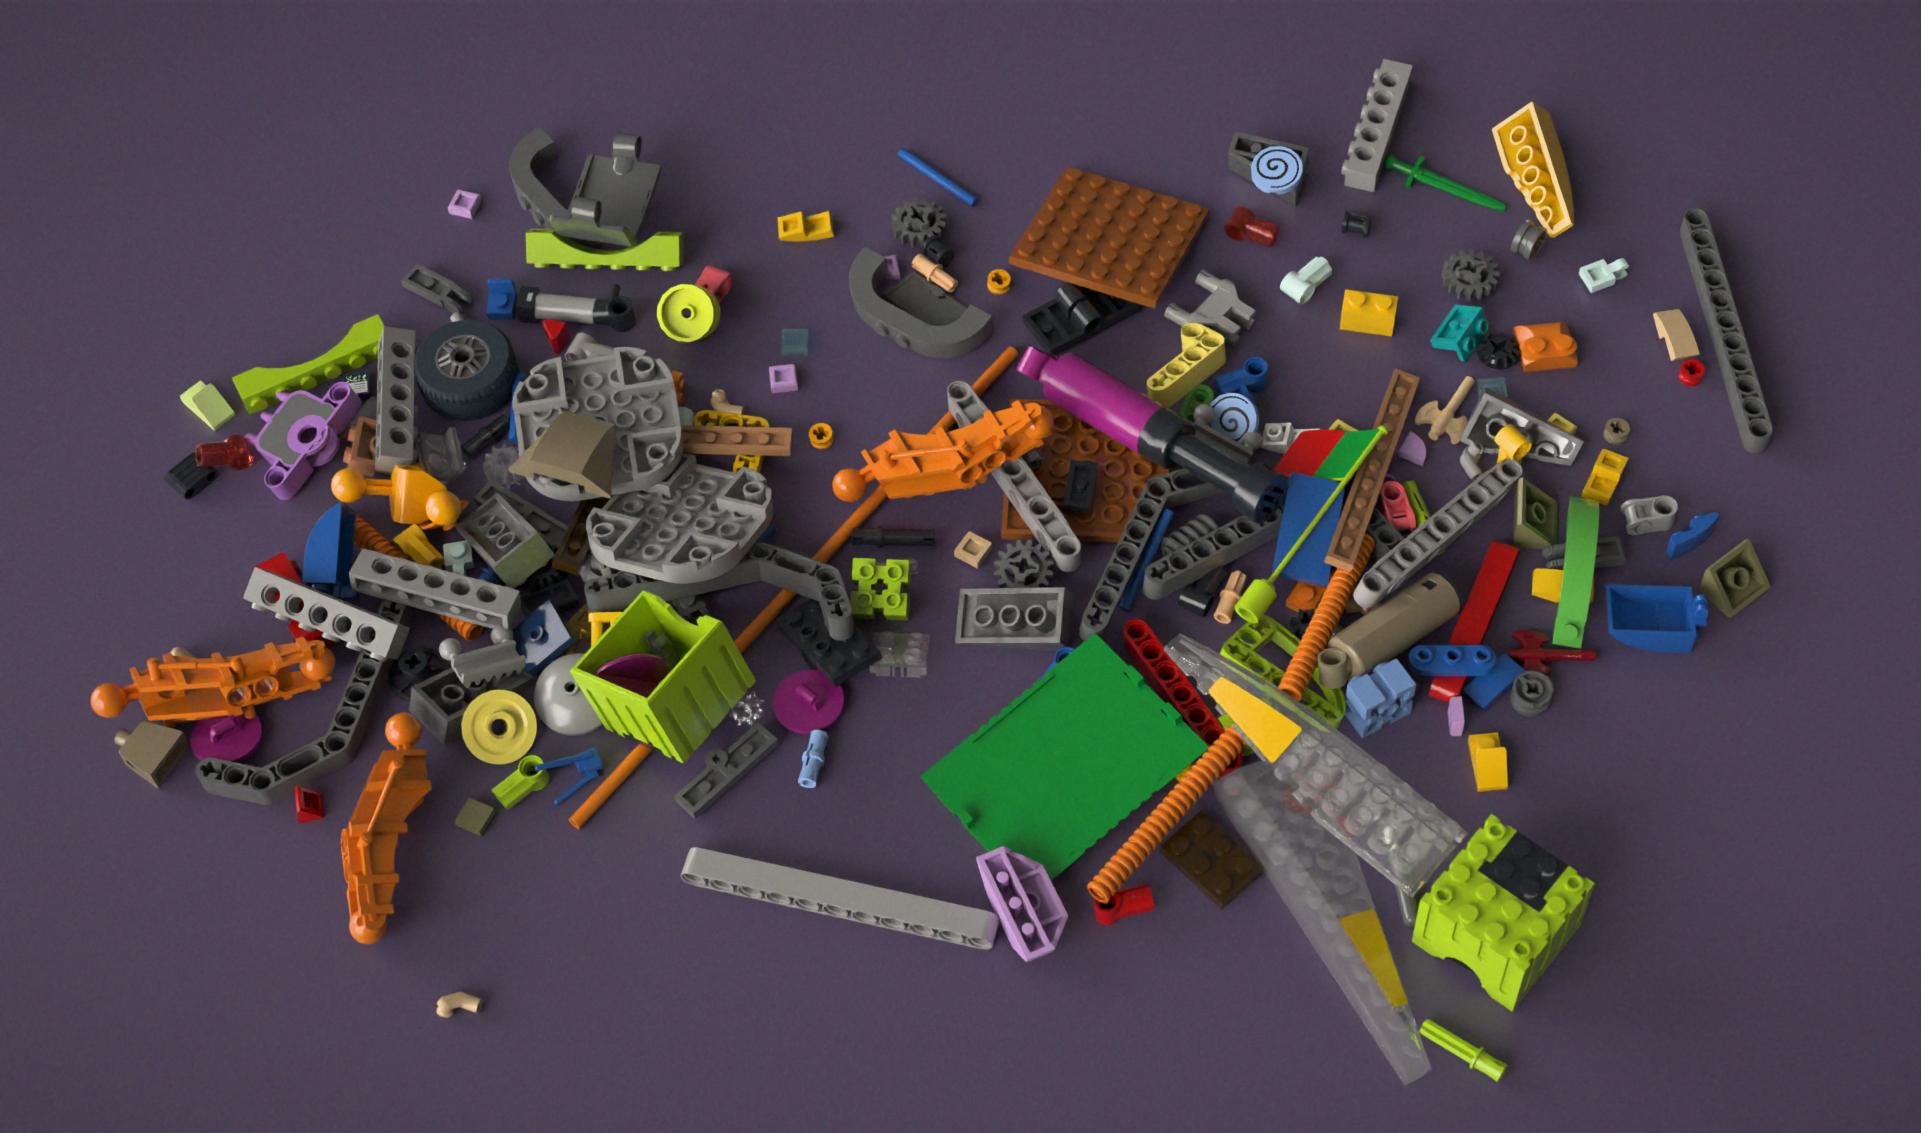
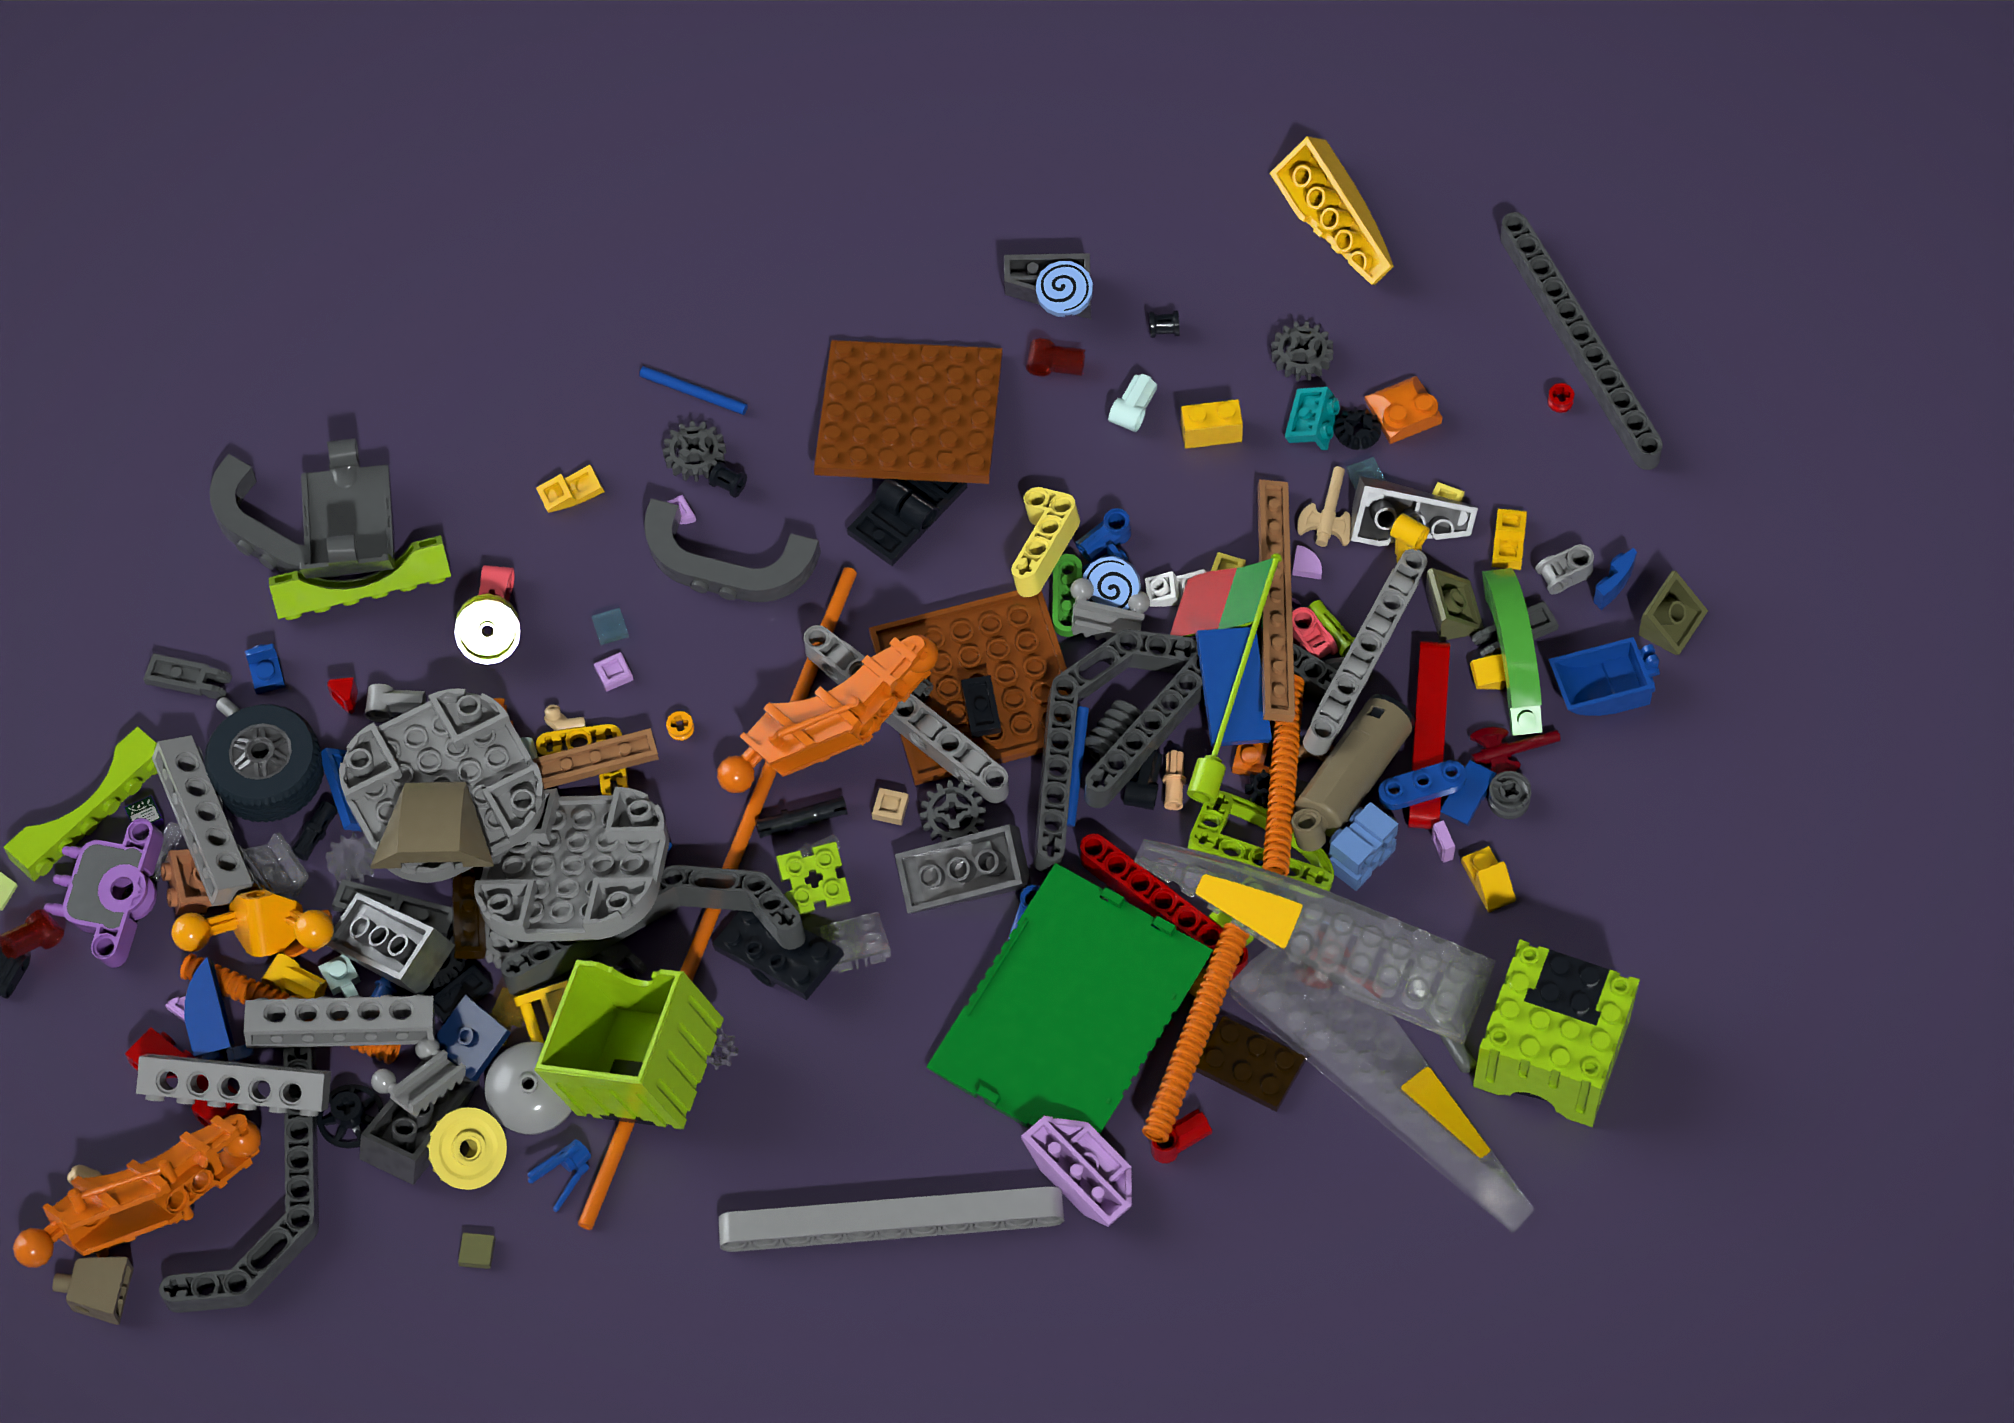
camera: 20 degrees left, 5 degrees up
(226, 737) = (172, 1249): magenta shield -> none
(308, 804) = (292, 1293): red slope -> none
(370, 840) = (384, 1291): orange piece -> none
(464, 204) = (174, 566): lavender tile -> none
(520, 784) = (512, 1202): lime piece -> none
(613, 312) = (308, 665): piece -> none
(635, 672) = (597, 1051): magenta piece -> none
(663, 648) = (612, 1019): dark grey plate -> none
(725, 769) = (721, 1120): dark grey hinge -> none
(807, 702) = (779, 1023): magenta shield -> none
(813, 759) = (808, 1081): light blue pin -> none
(922, 301) = (720, 539): dark grey door -> none
(934, 273) = (732, 505): light nougat axle -> none
(1003, 276) = (802, 502): light orange bush -> none
(1151, 429) = (1033, 623): piece -> none
(1218, 311) = (1051, 464): light grey connector -> none
(1378, 125) = (1153, 263): light grey brick -> none
(1418, 173) = (1235, 250): green sword -> none
(1470, 459) = (1367, 559): light grey arm -> none
(1476, 1057) = (1574, 1184): lime axle -> none
(1528, 240) = (1351, 295): dark grey wheel -> none
(1600, 275) = (1437, 313): light aqua plate -> none
(1615, 438) = (1505, 493): dark tan bush -> none
(1677, 333) = (1536, 361): tan slope -> none

